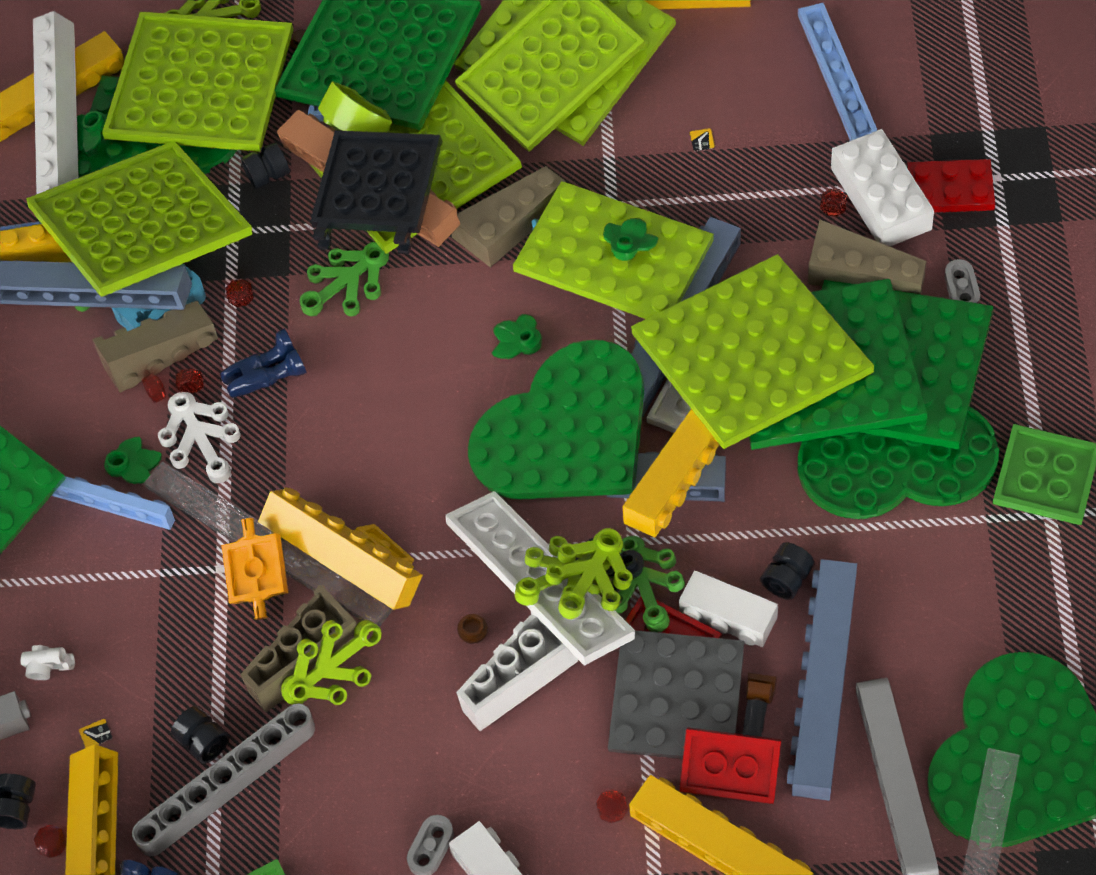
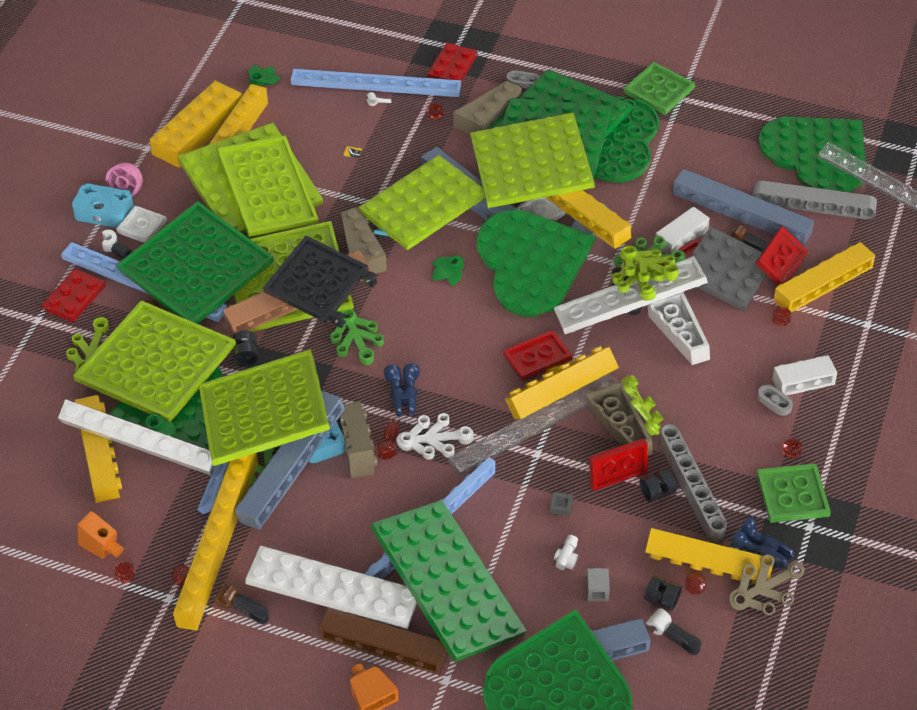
camera: 75 degrees left, 10 degrees down
(95, 733) = (626, 546): sticker -> none
(131, 461) = (435, 477): green plate -> none
(132, 626) = (561, 504): none -> dark grey plate
(211, 668) = (618, 464): none -> red plate
(239, 292) = (335, 388): clear red tile -> none
(254, 568) = (554, 428): light orange plate -> none
(351, 112) = (247, 282): lime brick -> none
(394, 503) = (537, 355): none -> red plate
(472, 628) = (640, 344): reddish brown plate -> none
(629, 238) = (423, 184): green plate -> none
(789, 568) = (671, 200): black wheel -> none
(817, 119) = (372, 101): none -> white hand
(882, 188) = (447, 81): white brick -> none

